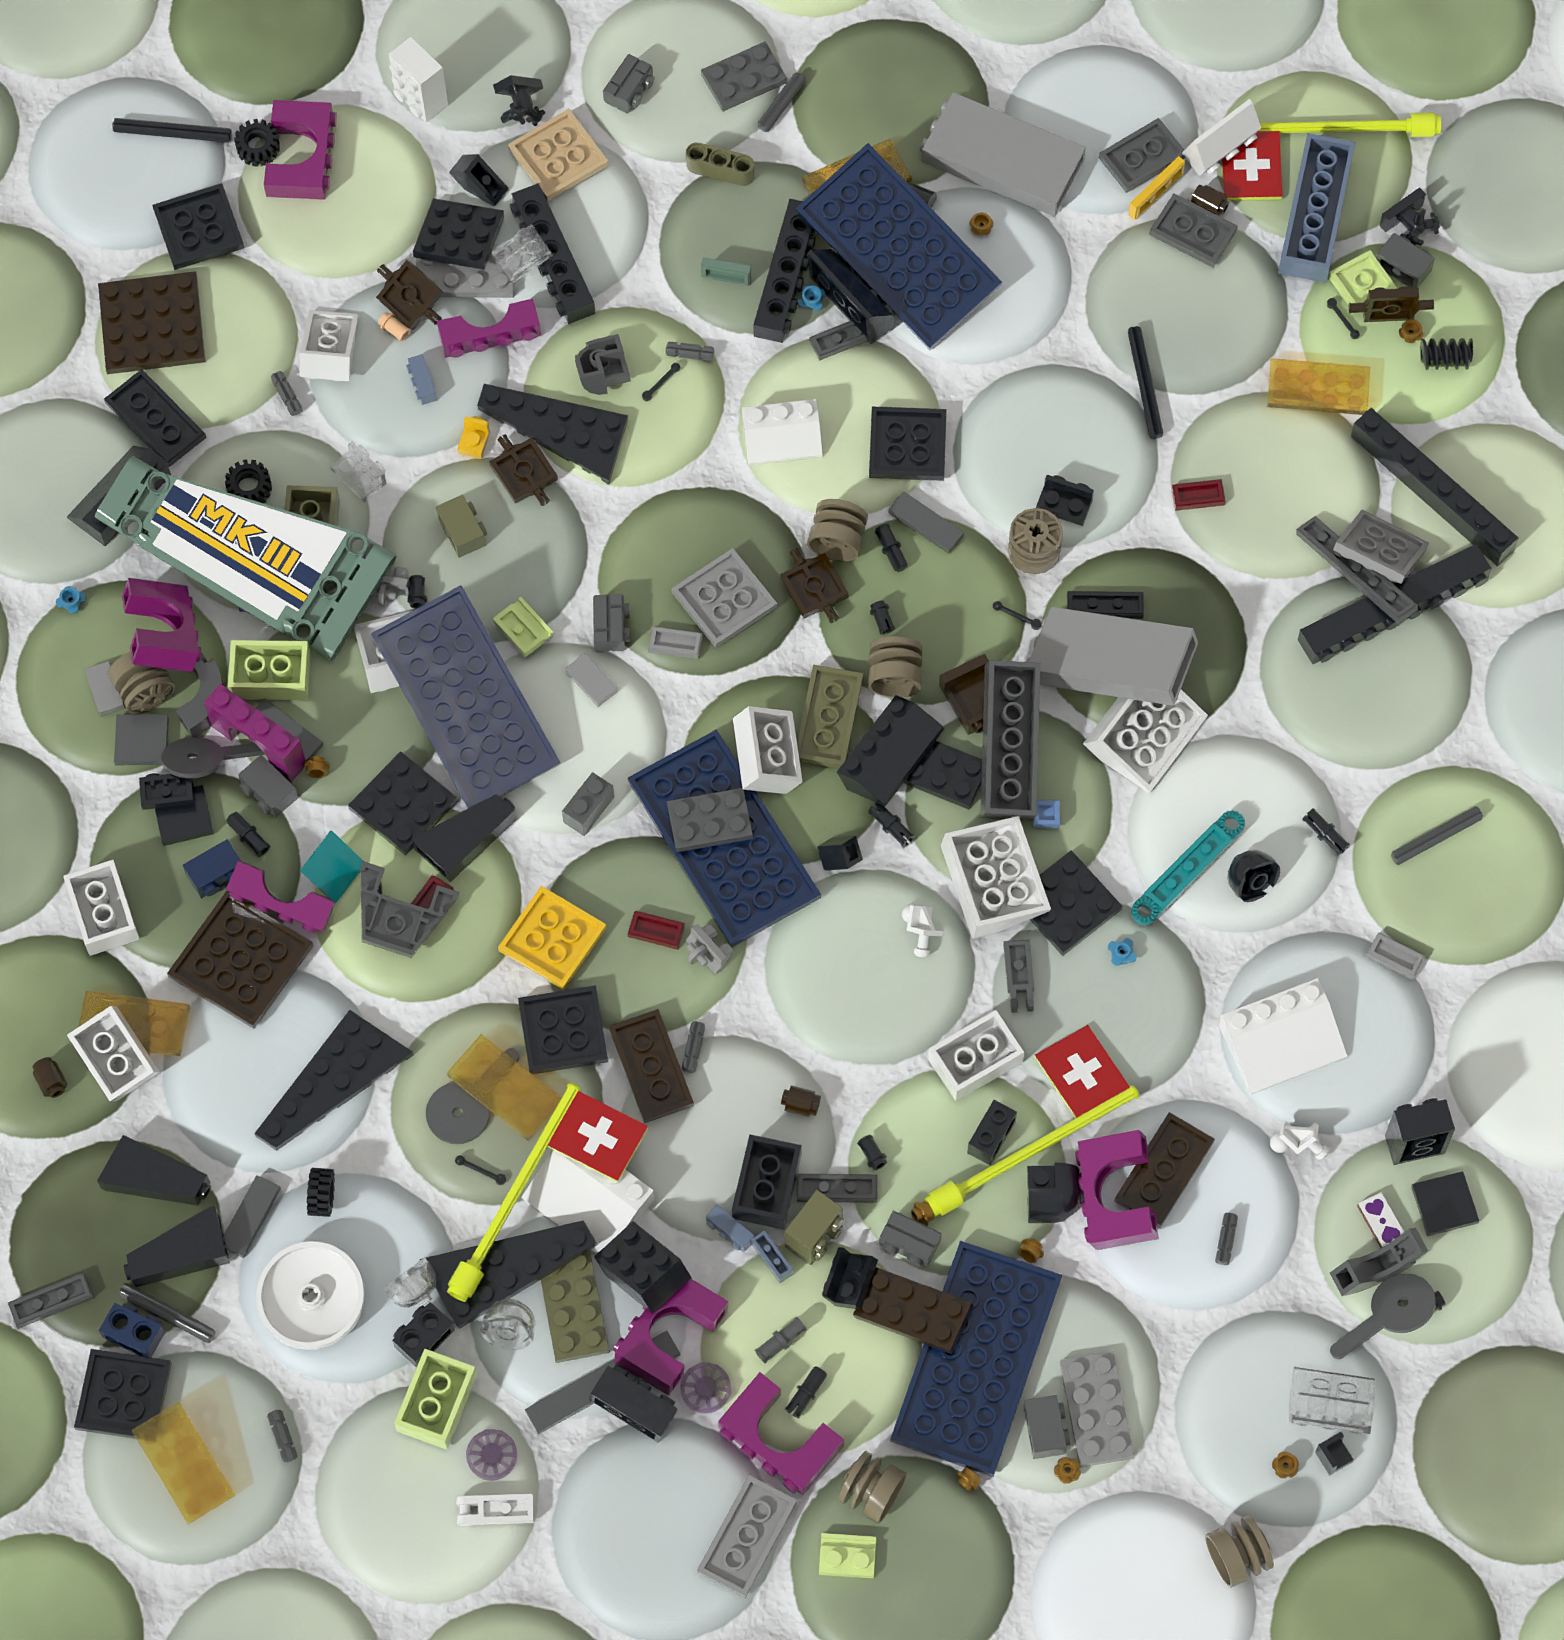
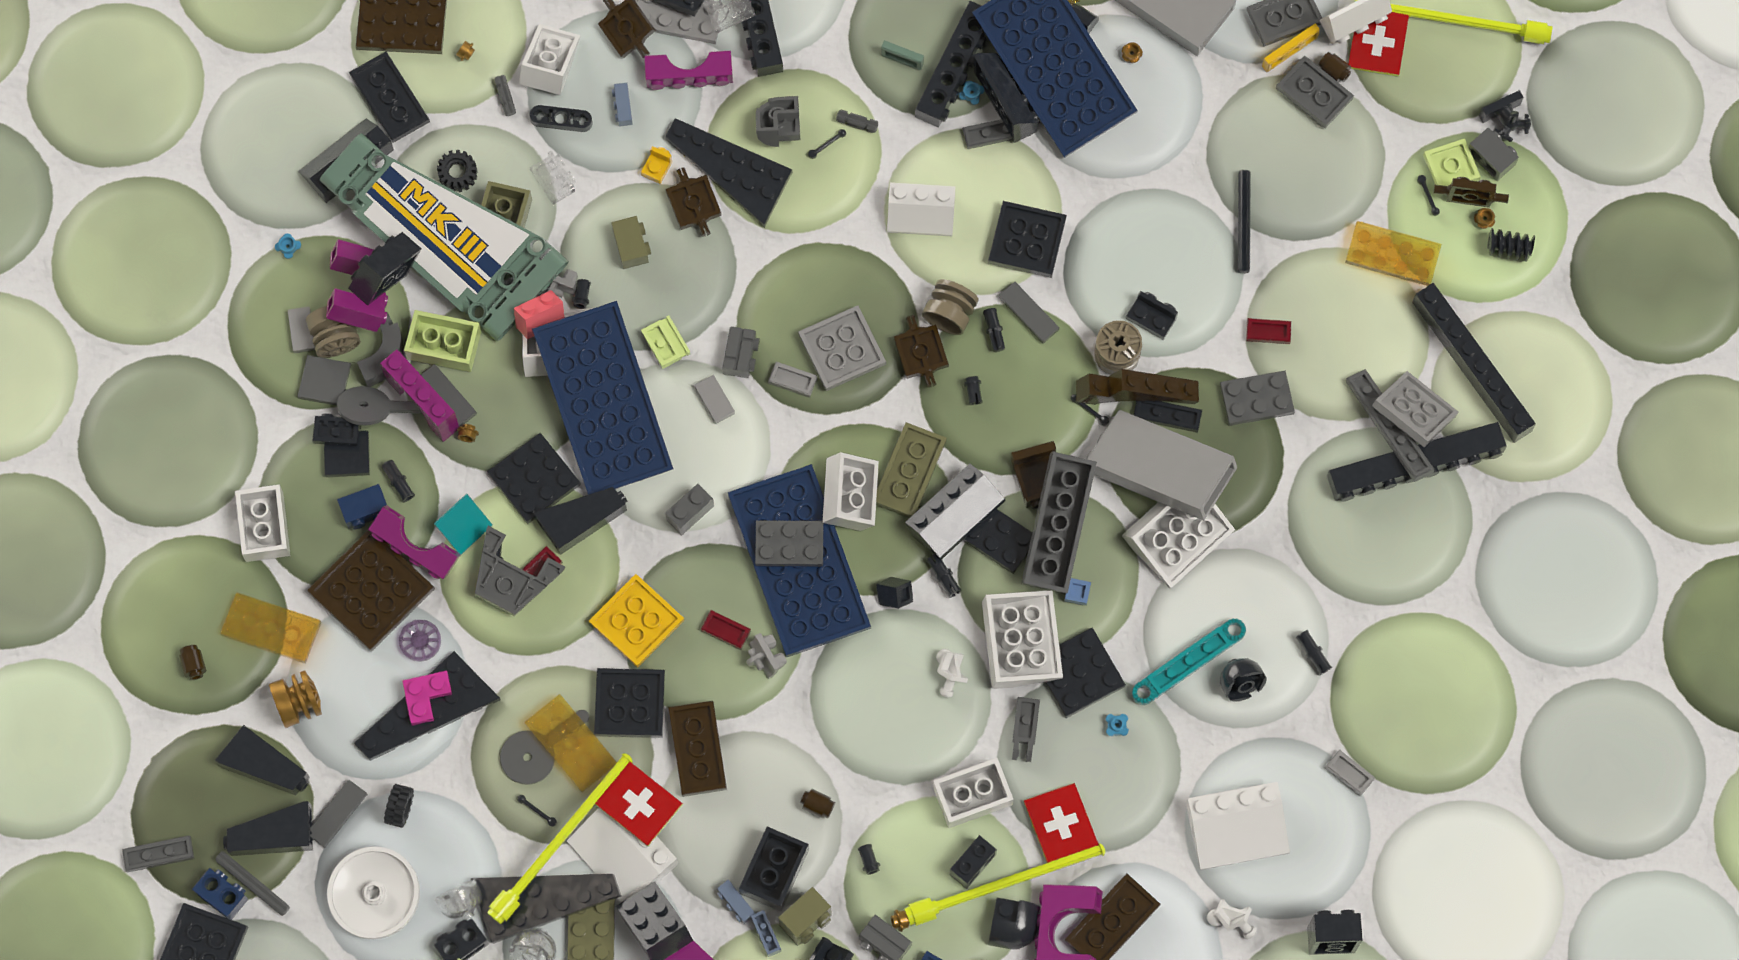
camera: 10 degrees right, 5 degrees up
(113, 1053) = (248, 653): white brick -> none
(178, 1094) = (295, 698): none -> pearl gold wheel
(188, 597) = (384, 268): none -> black brick
(232, 353) = (465, 51): none -> pearl gold plate
(267, 786) = (422, 442): dark grey brick -> none
(307, 1005) = (420, 640): none -> clear purple wheel
(319, 1063) = (420, 691): none -> dark pink plate
(363, 413) = (577, 114): none -> black beam
(370, 617) = (538, 312): none -> coral brick
(395, 327) = (608, 52): light nougat pin -> none
(693, 1046) = (736, 738): dark grey axle -> none
(838, 1187) = (833, 884): dark grey tile -> none
(895, 666) = (974, 438): dark tan wheel -> none
(1062, 578) = (1135, 386): none -> dark brown arch
(1201, 569) = (1257, 398): none -> dark grey plate
(1316, 208) = (1425, 91): sand blue brick -> none
(1436, 835) = (1408, 673): dark grey axle -> none

